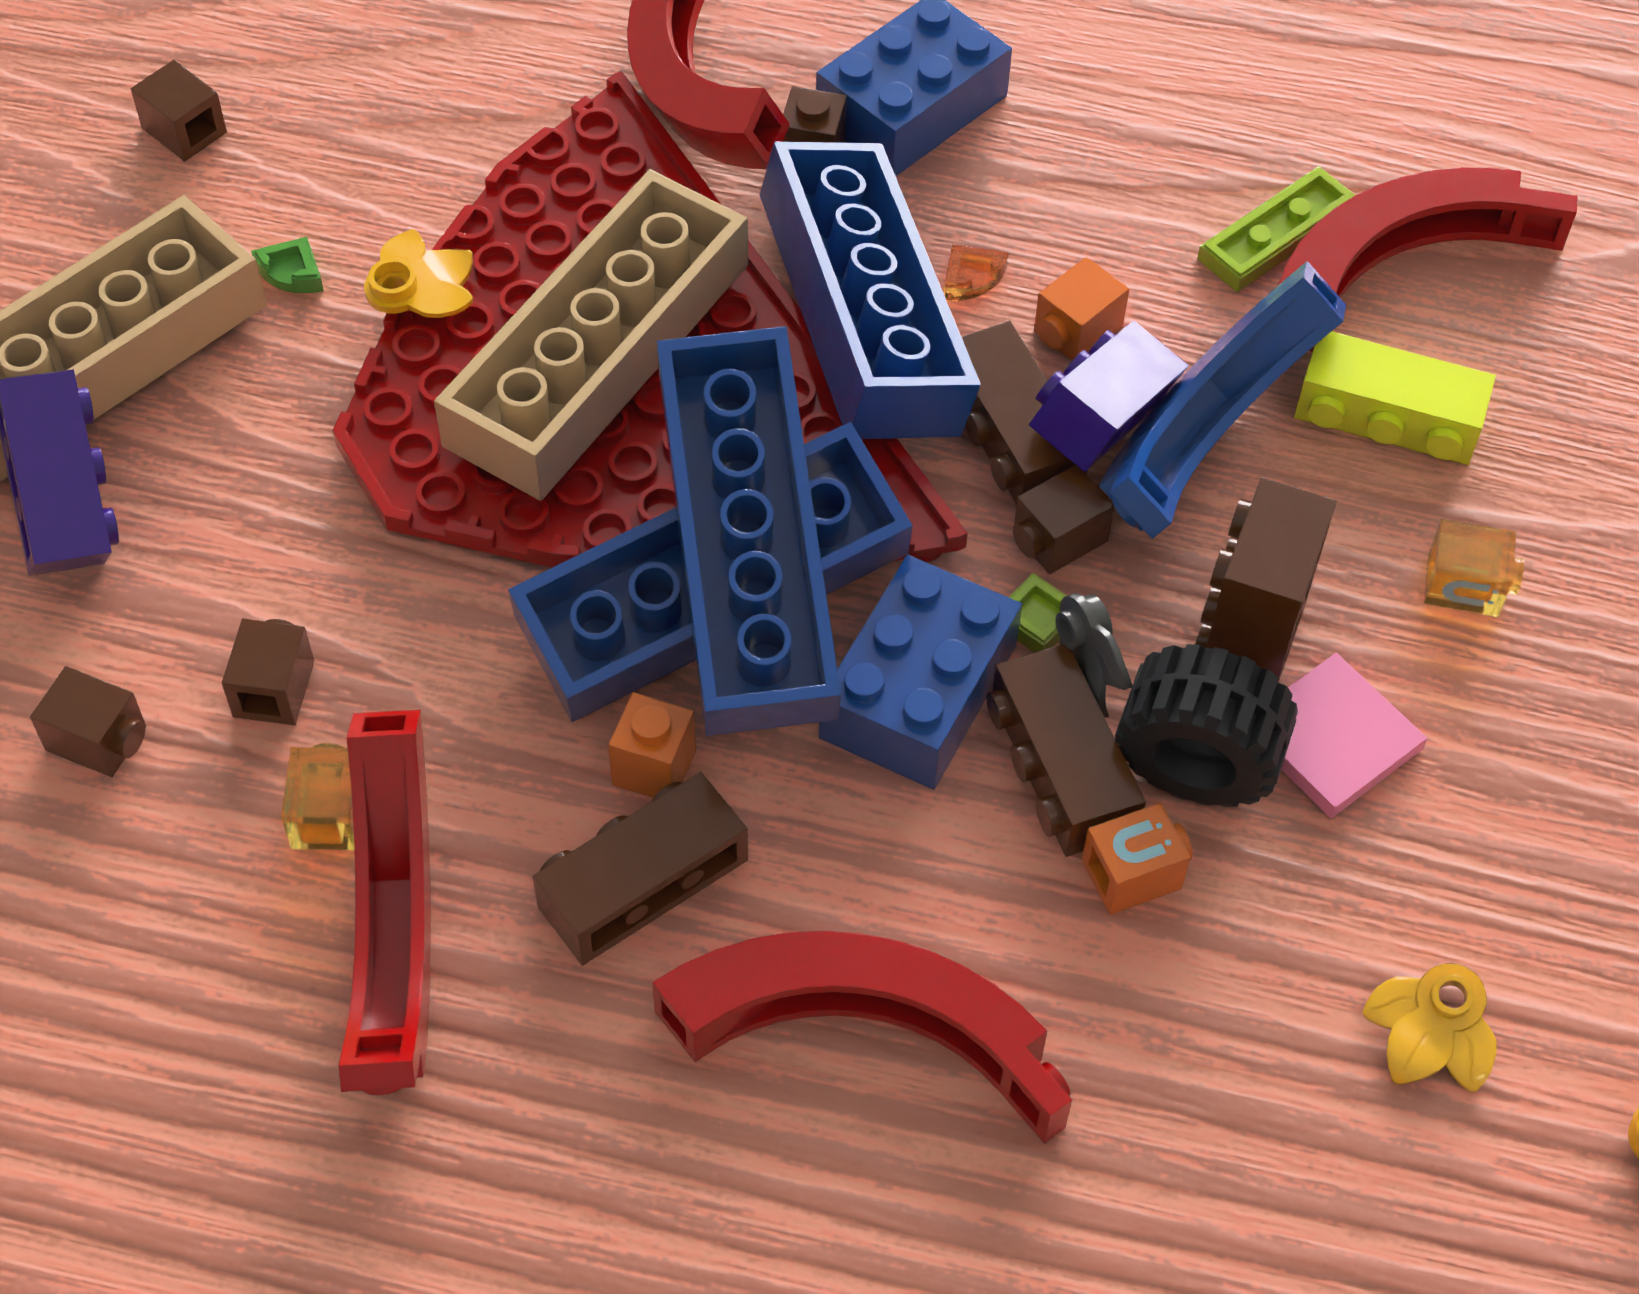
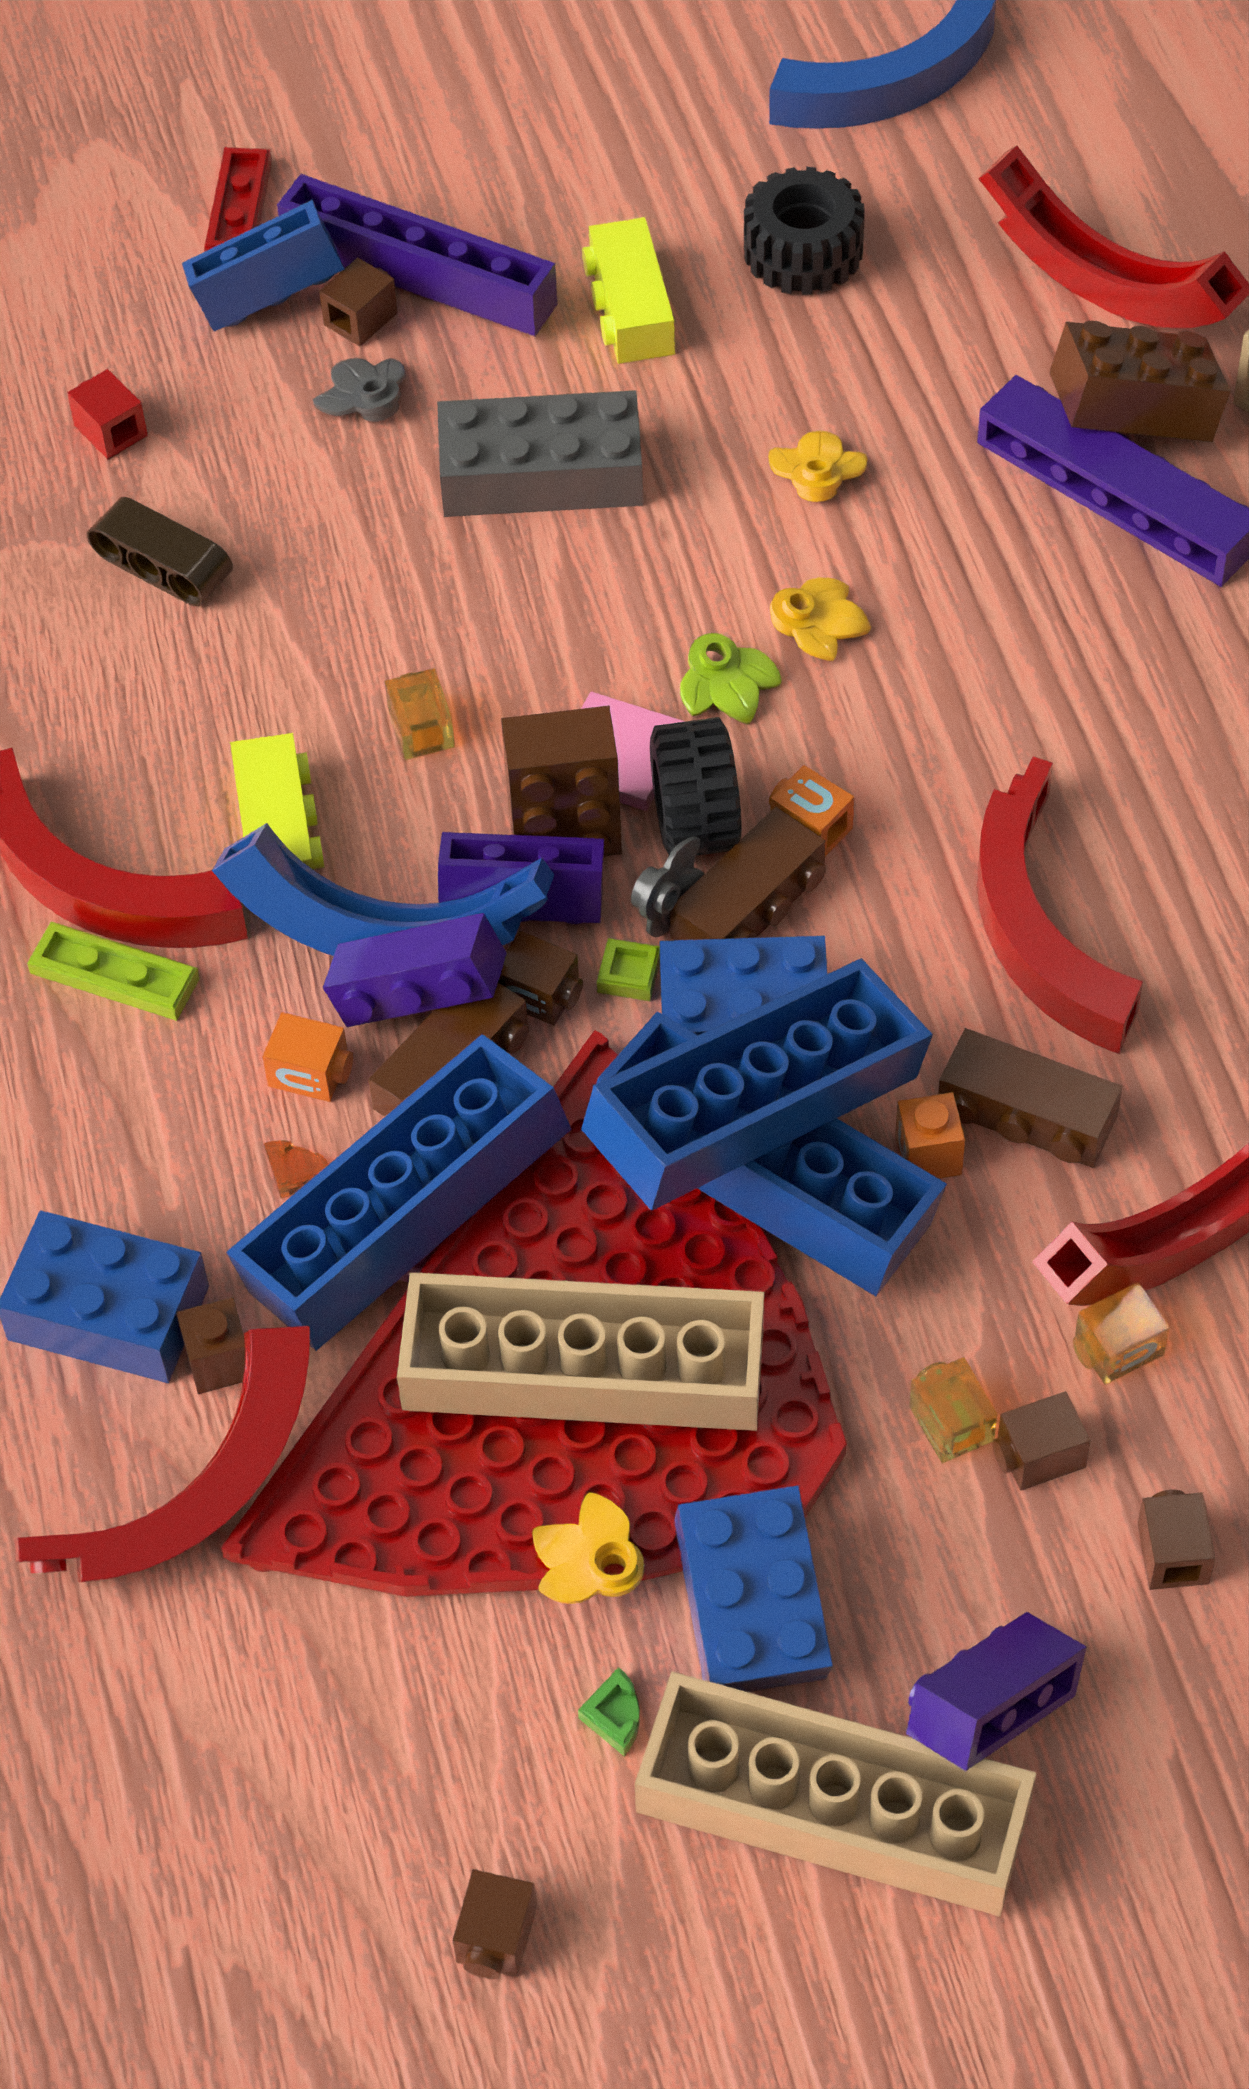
camera: 115 degrees left, 0 degrees up
(291, 364) = (753, 1590): none -> blue brick
(356, 617) = (952, 1409): none -> clear yellow brick
(1184, 554) = (478, 861): none -> dark purple brick
(1376, 884) = (727, 683): none -> lime plate

